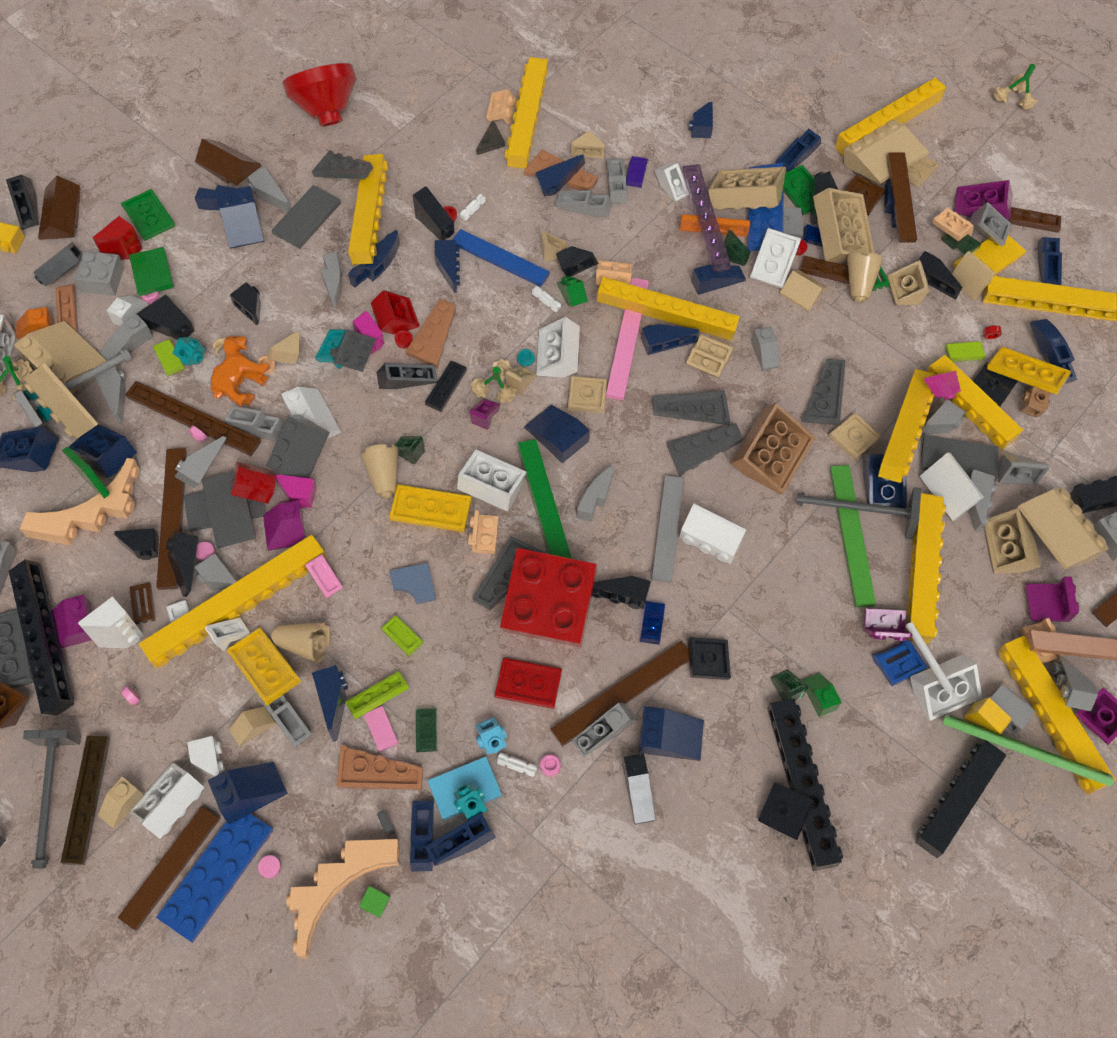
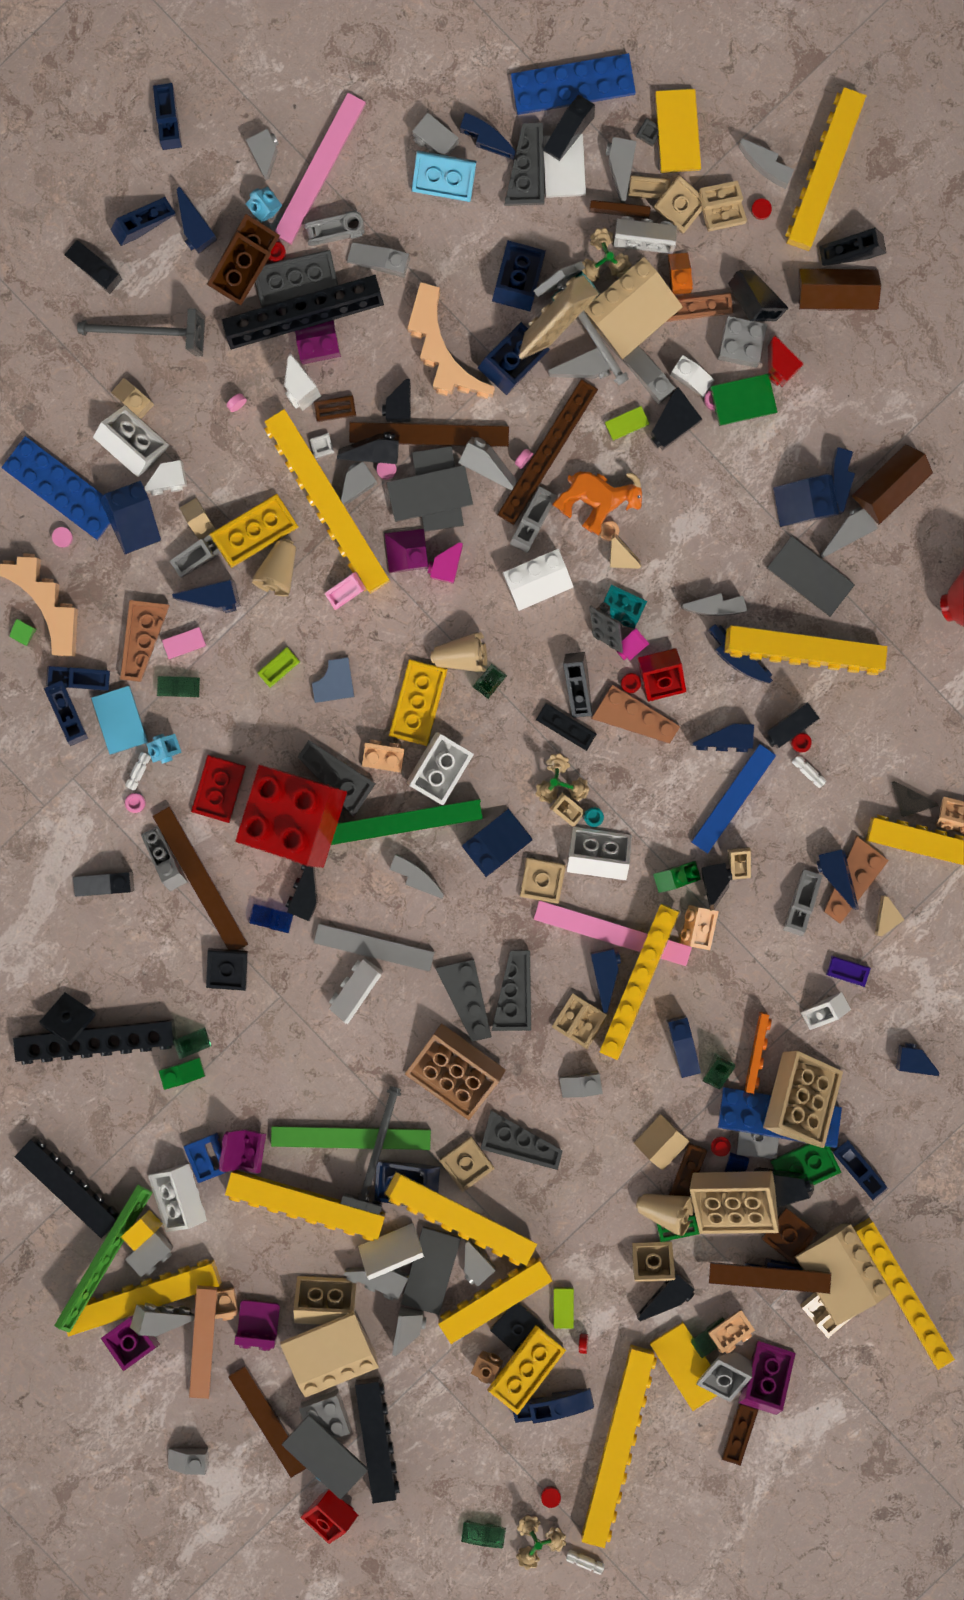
camera: 100 degrees right, 25 degrees up
(85, 800) = (138, 366): dark brown plate -> none
(86, 472) = (474, 346): green tile -> none
(148, 214) = (828, 391): green tile -> none
(168, 869) = (69, 446): reddish brown tile -> none
(189, 351) = (627, 447): teal brick -> none
(227, 631) = (292, 495): white slope -> none
(247, 301) = (690, 511): black slope -> none
(253, 483) = (457, 520): red slope -> none
(297, 447) = (488, 566): dark grey slope -> none
(337, 166) = (872, 617): dark grey wing -> none
(377, 695) = (216, 640): lime plate -> none
(386, 824) = (90, 645): dark grey tile -> none
(469, 800) = (99, 724): teal brick -> none
(483, 412) = (525, 767): magenta slope -> none
(546, 298) = (671, 847): white axle -> none
(617, 180) = (834, 945): light grey slope -> none
(670, 734) = (153, 921): dark blue slope -> none
(706, 218) = (760, 1042): clear purple tile -> none
(775, 258) = (700, 1115): white tile -> none
(929, 658) = (199, 1184): white bar -> none
(944, 385) = (509, 1269): dark pink slope -> none
(973, 275) = (654, 1335): tan slope -> none
(1020, 83) = (945, 1467): tan plant -> none
(1050, 260) = (674, 1434): dark blue slope -> none

